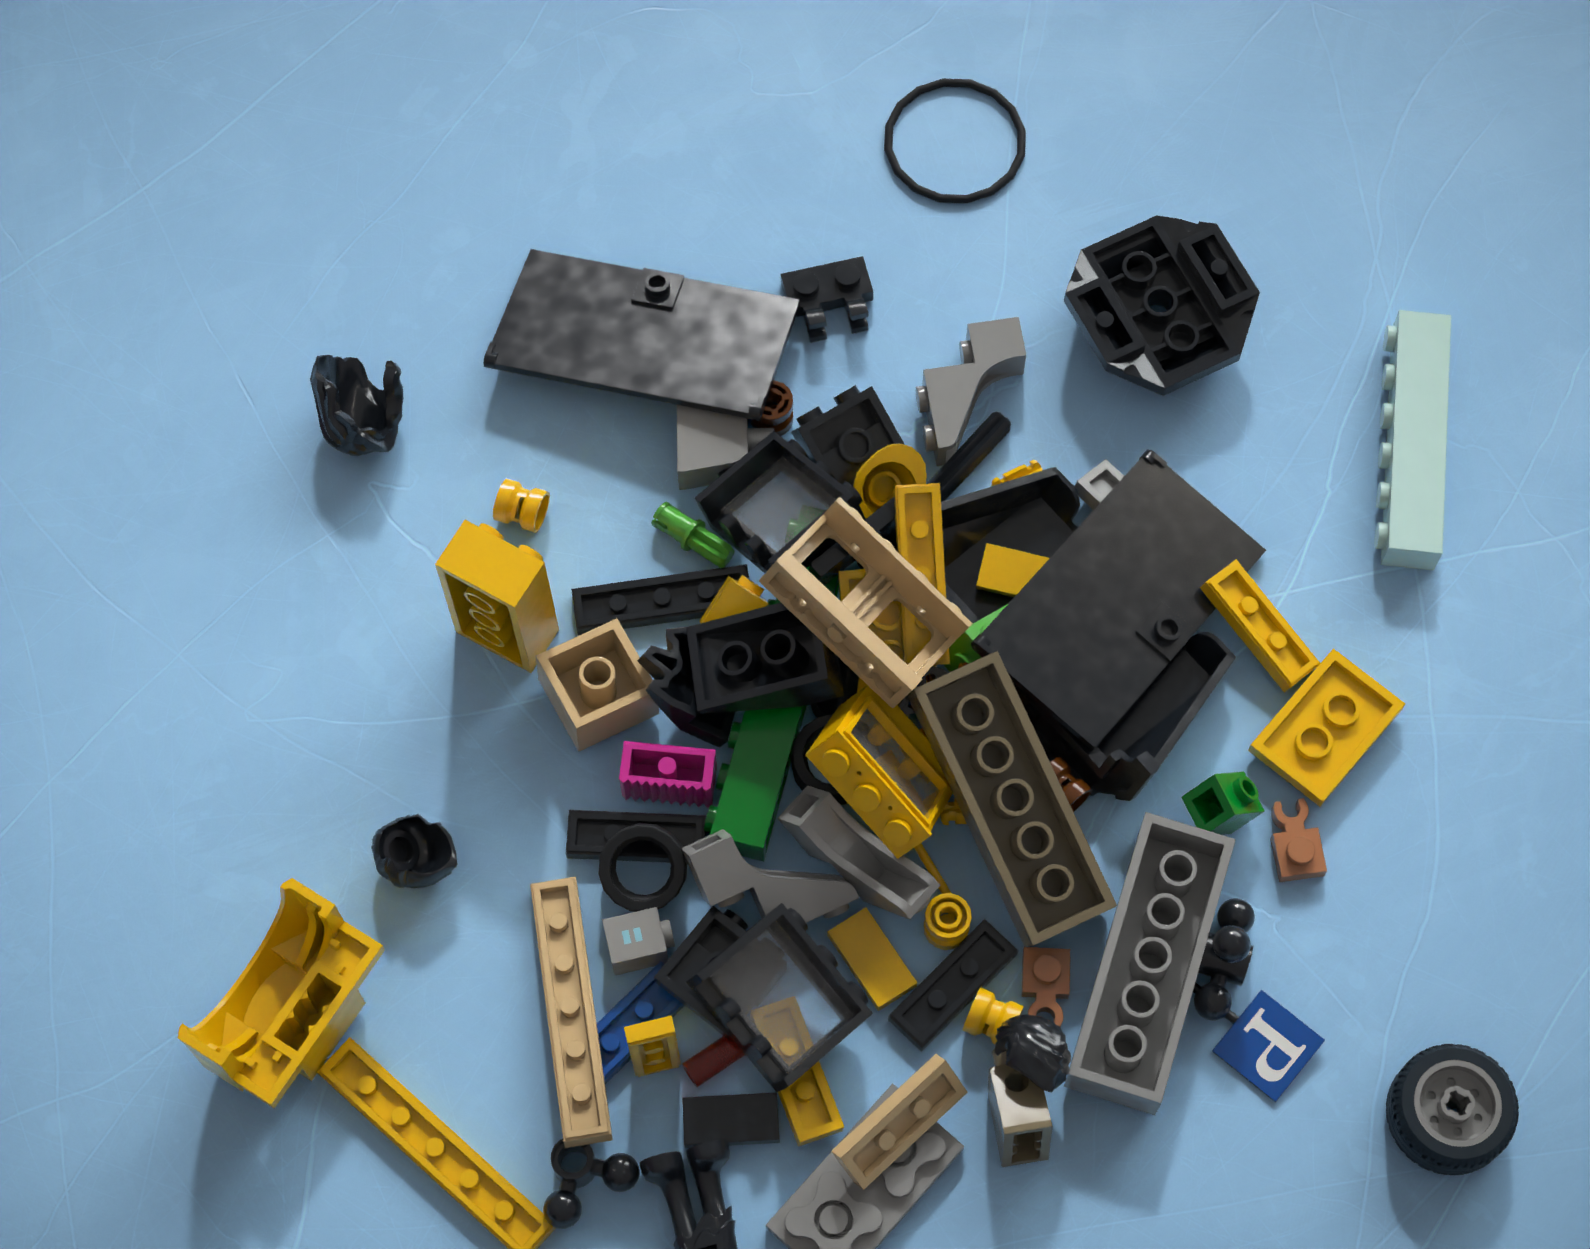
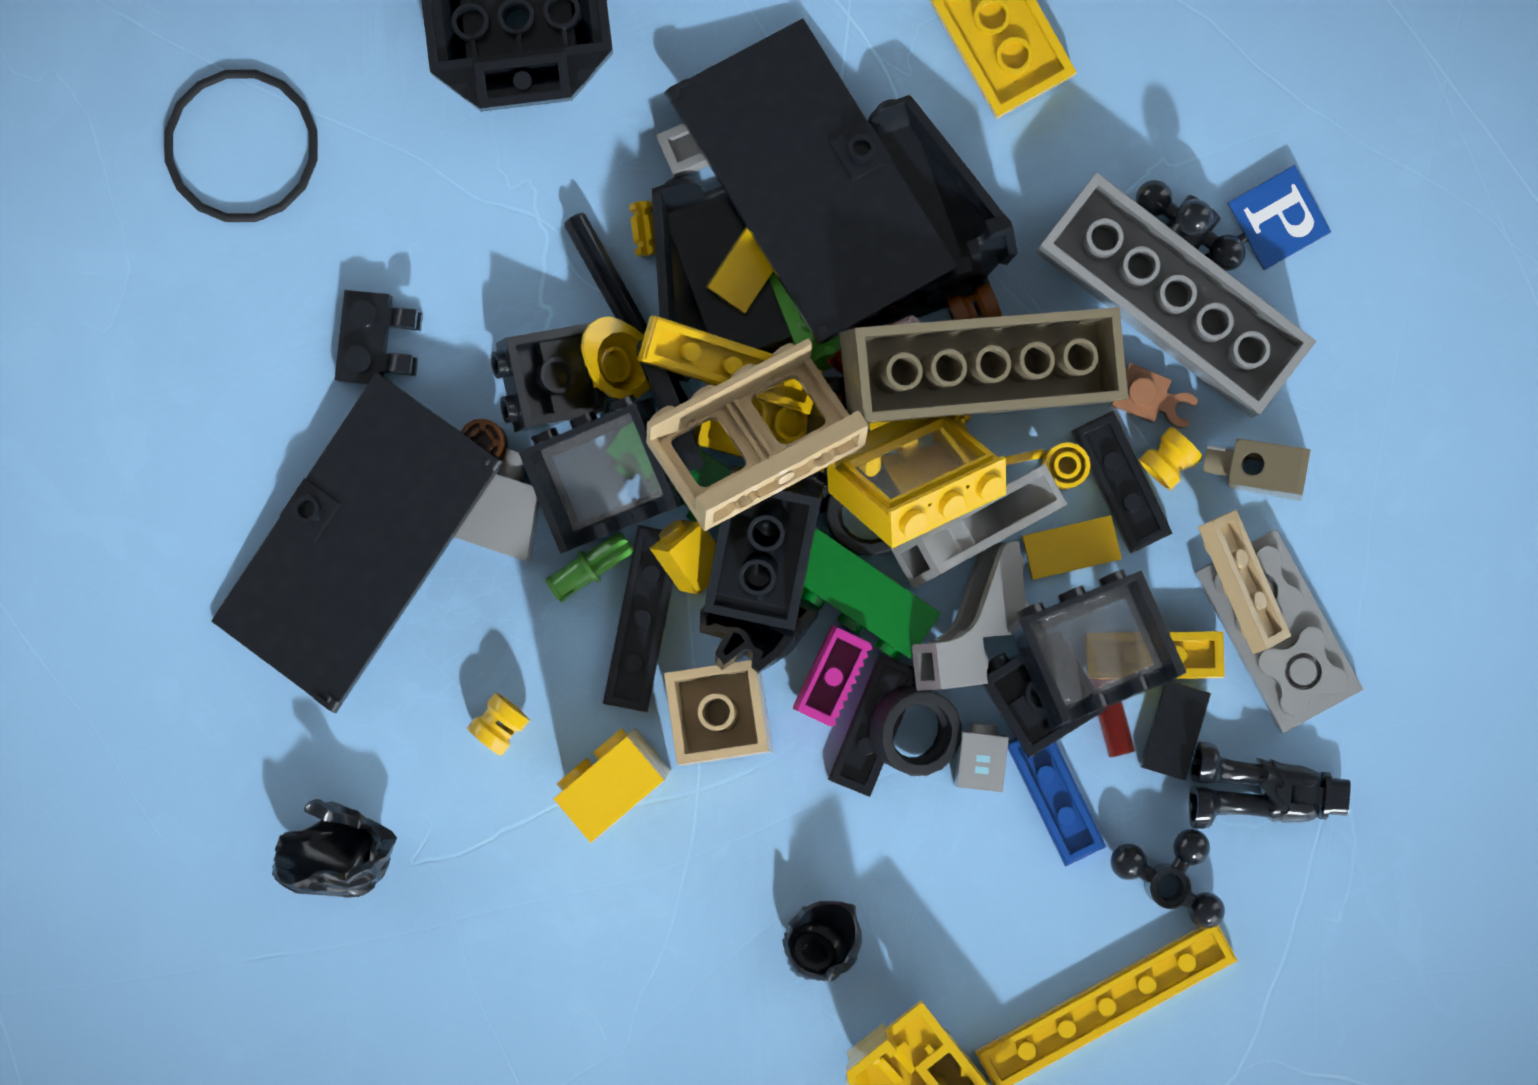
camera: 70 degrees left, 20 degrees up
(571, 1013) = (1028, 843): tan tile -> none
(653, 1046) = (1103, 783): yellow tile -> none
(950, 392) = (531, 260): light grey arch -> none
(1035, 1049) = (1231, 437): black hair -> none
(1223, 803) = (1048, 166): green brick -> none
(1260, 625) = (881, 57): yellow tile -> none
(1296, 849) = (1108, 114): nougat plate -> none
(1444, 1138) = (1423, 58): wheel -> none

